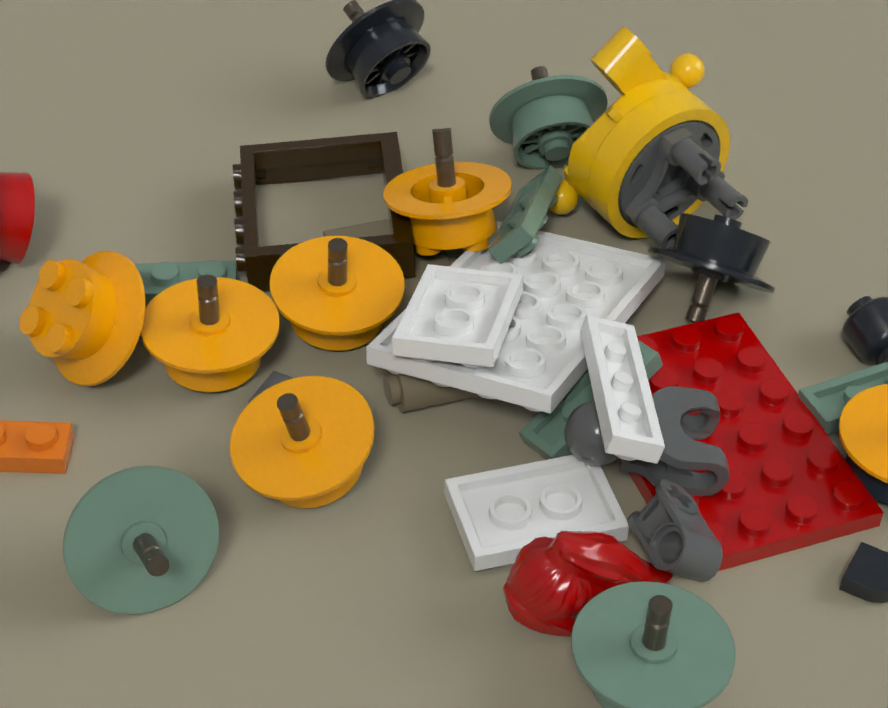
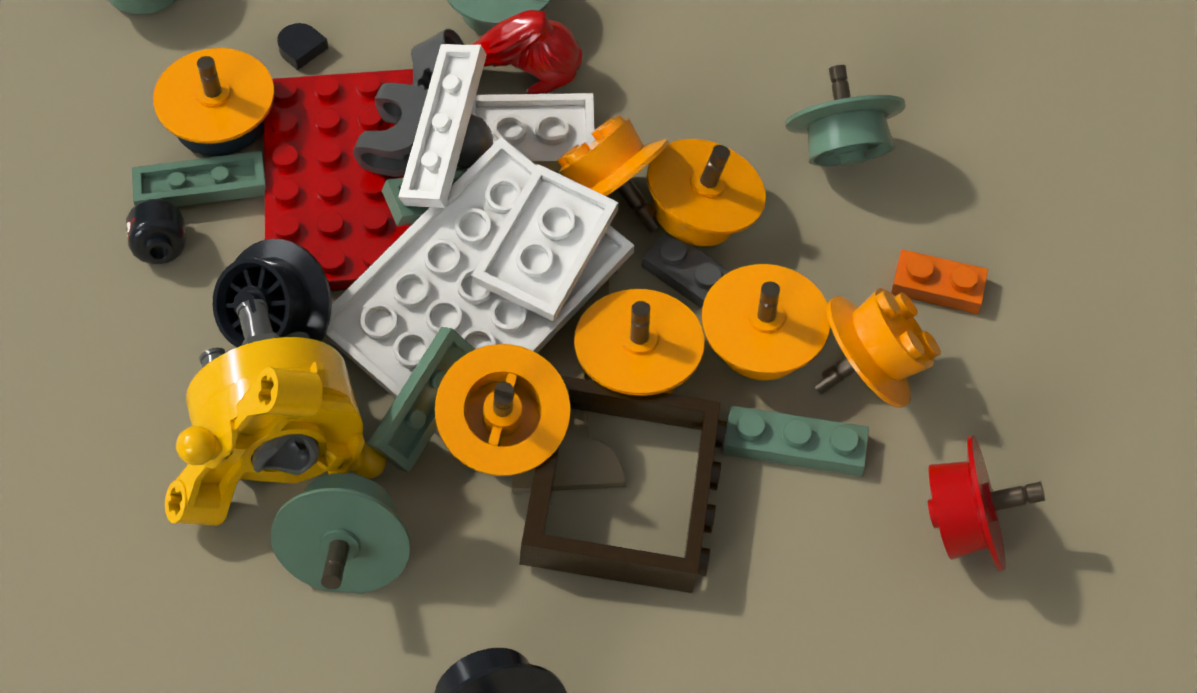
camera: 165 degrees left, 15 degrees up
(414, 426) = (612, 162): none -> light orange piece

